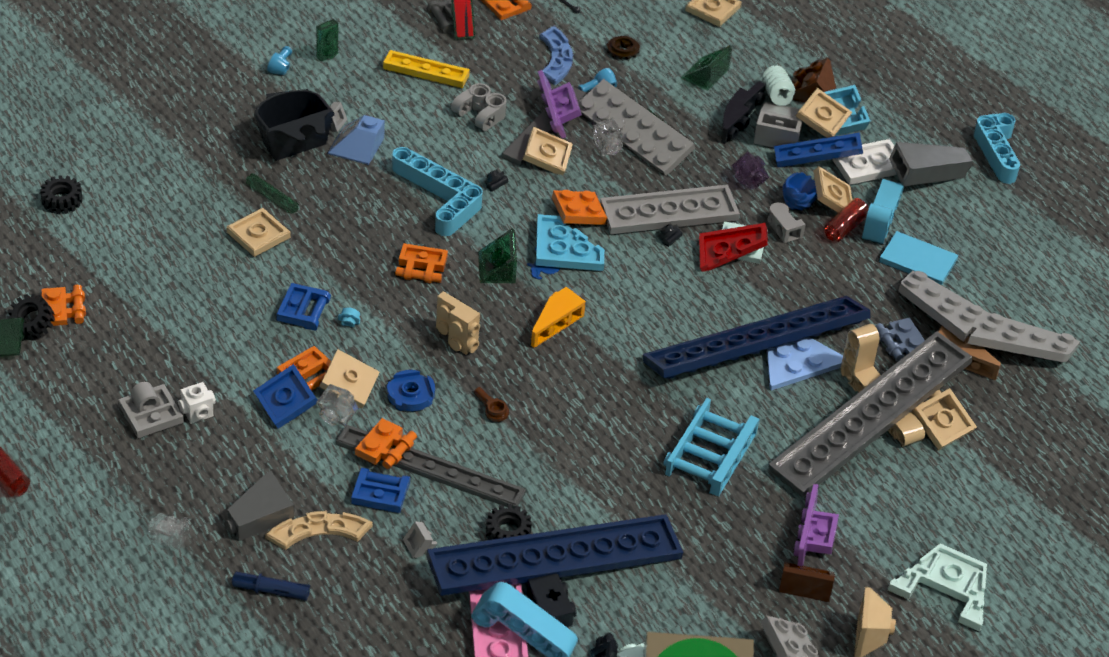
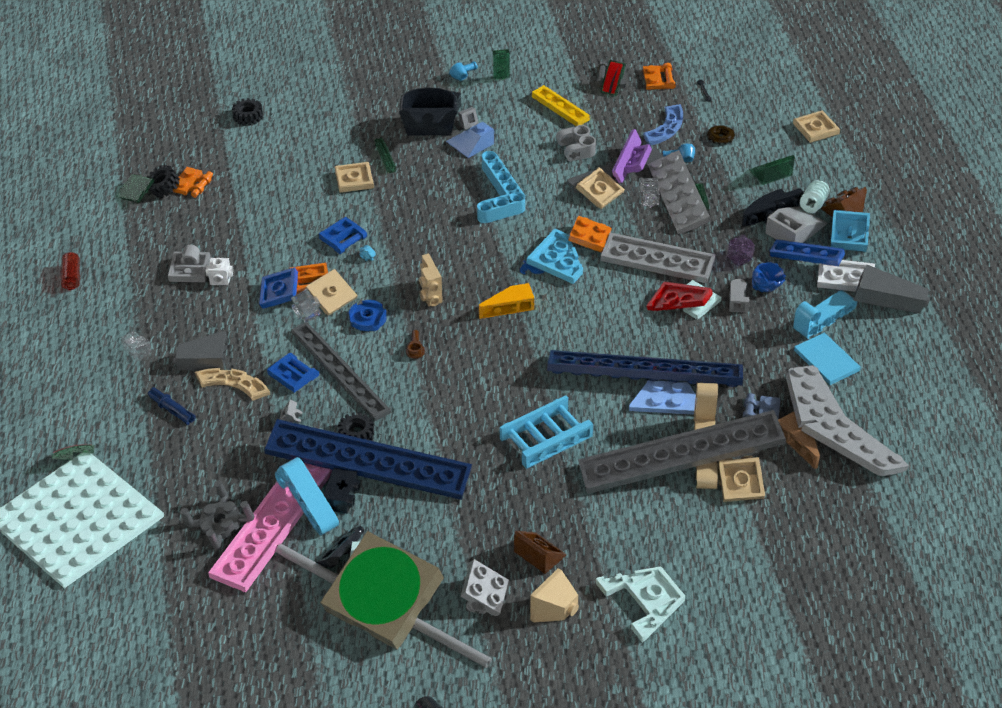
camera: 35 degrees right, 0 degrees up
(381, 439) = (318, 343): orange plate -> none
(423, 258) = (450, 231): orange plate -> none
(495, 180) = (547, 196): black plate -> none
(499, 260) = (503, 251): clear green slope -> none
(670, 234) = (644, 275): black plate -> none
(818, 529) = (573, 517): medium lavender bracket -> none
(823, 114) = (827, 226): tan plate -> none
(831, 190) = (793, 286): tan plate -> none
(846, 220) = (783, 311): clear red brick -> none
(992, 136) = (966, 284): medium azure beam -> none

